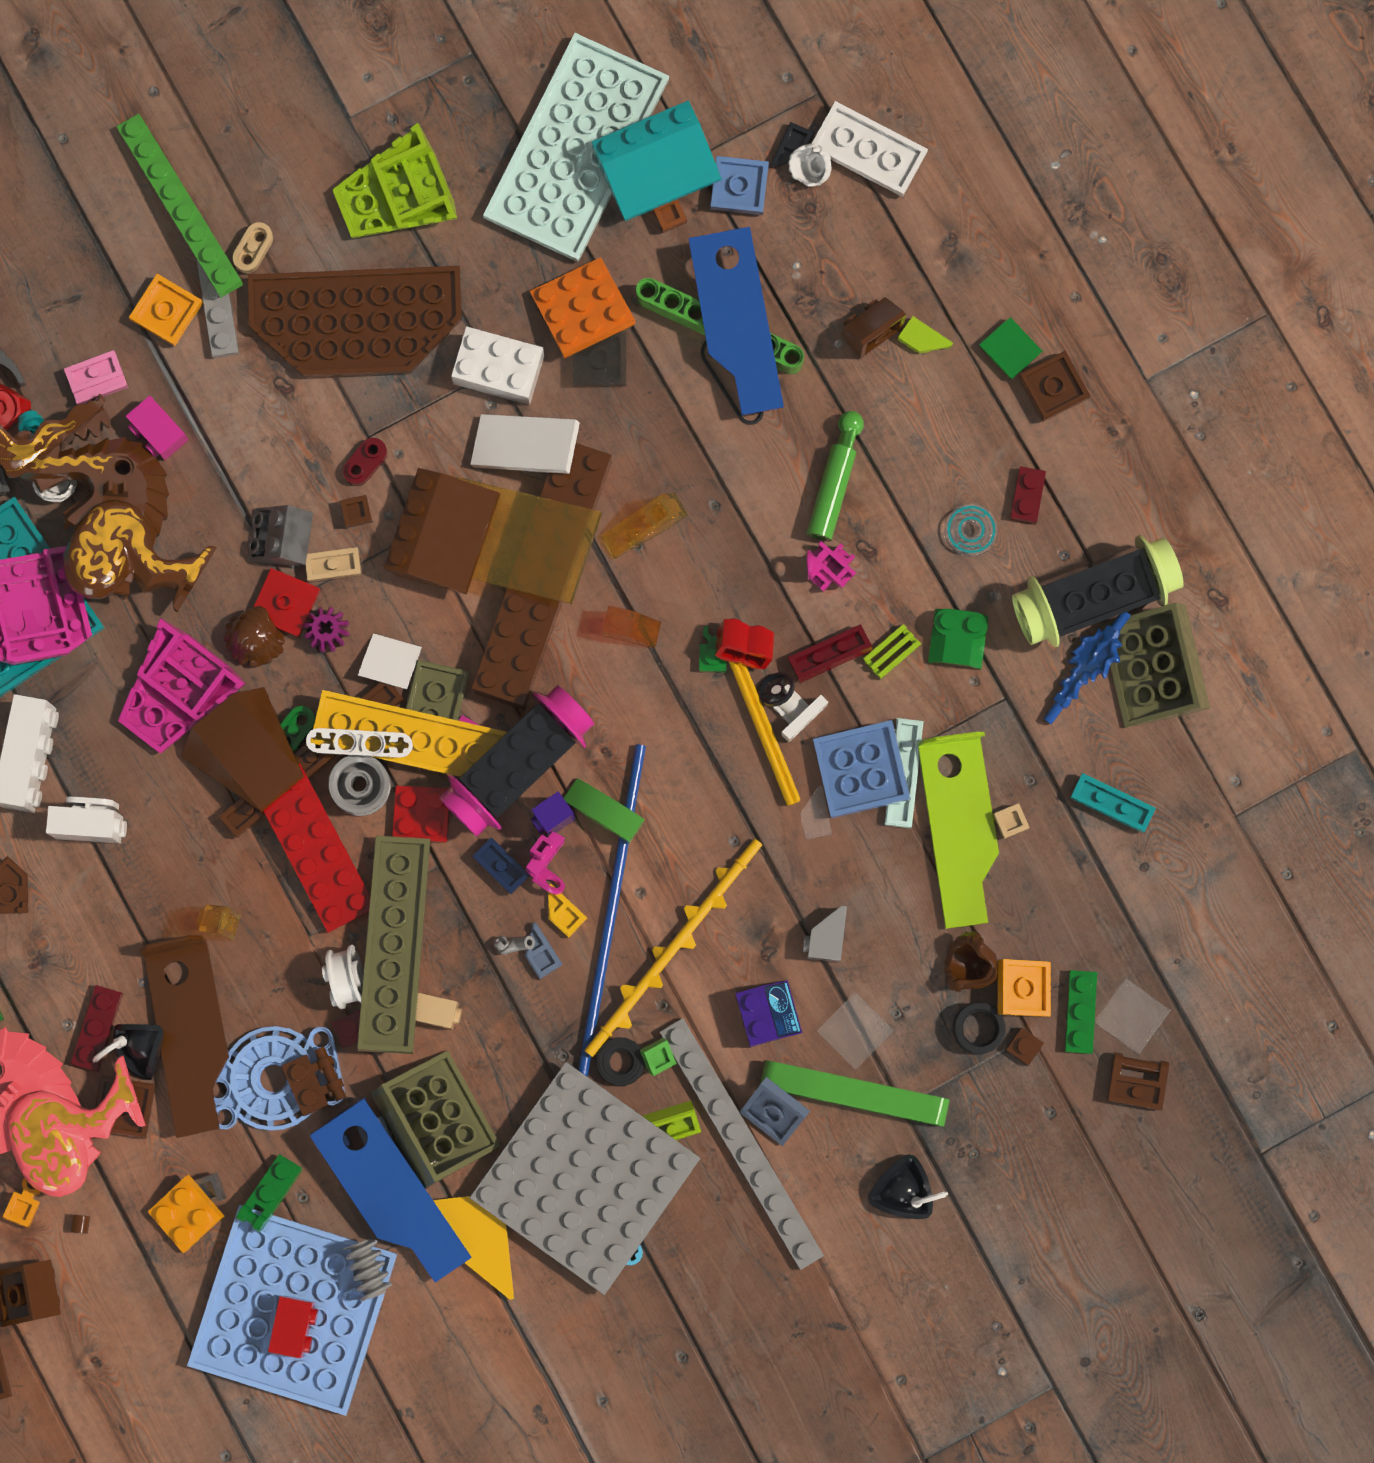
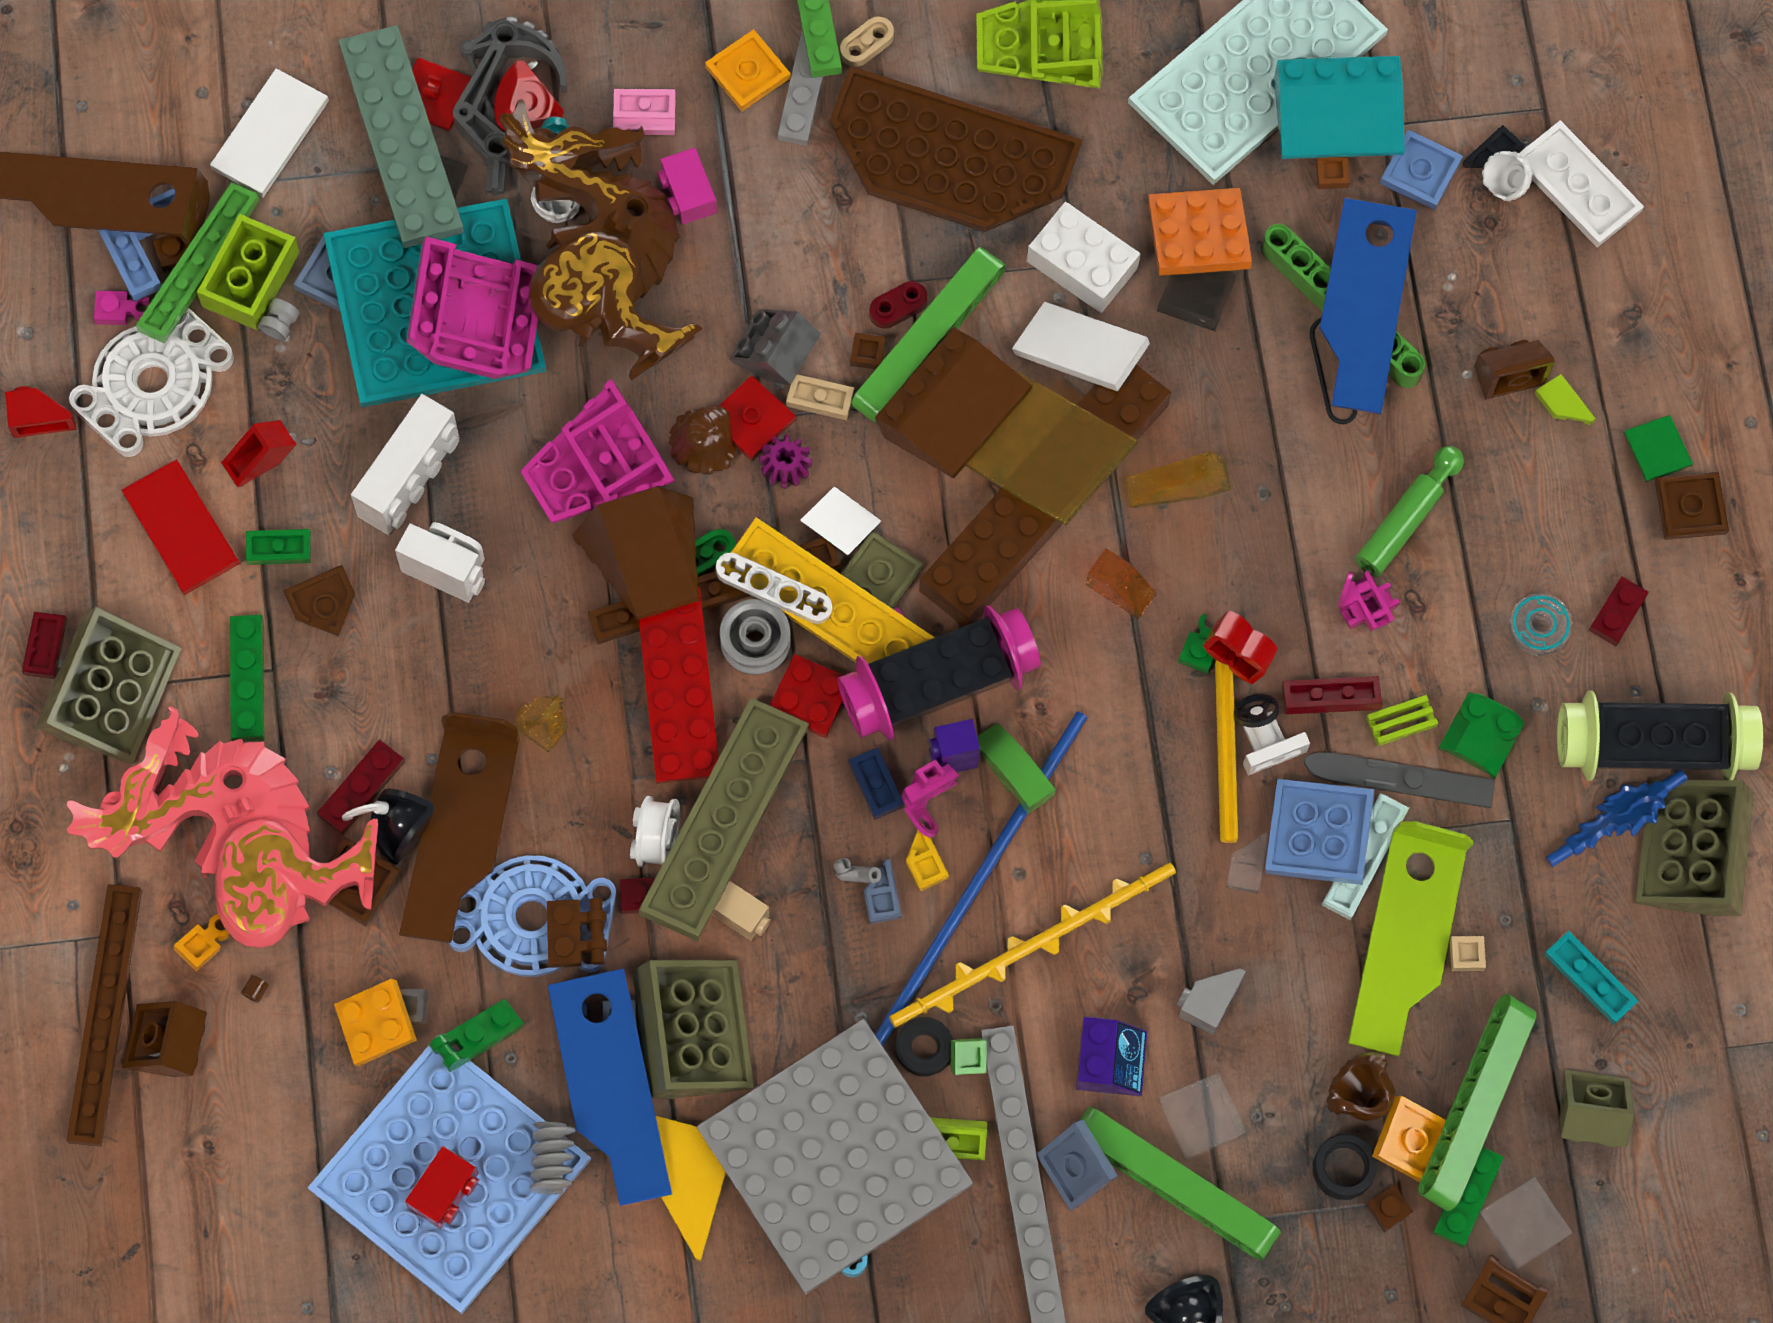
camera: 20 degrees right, 10 degrees down
(399, 476) = (941, 316): none -> bright green beam
(908, 698) = (1401, 778): none -> dark grey piece
(1062, 938) = (1477, 1102): none -> bright green beam
(1154, 905) = (1596, 1108): none -> olive slope

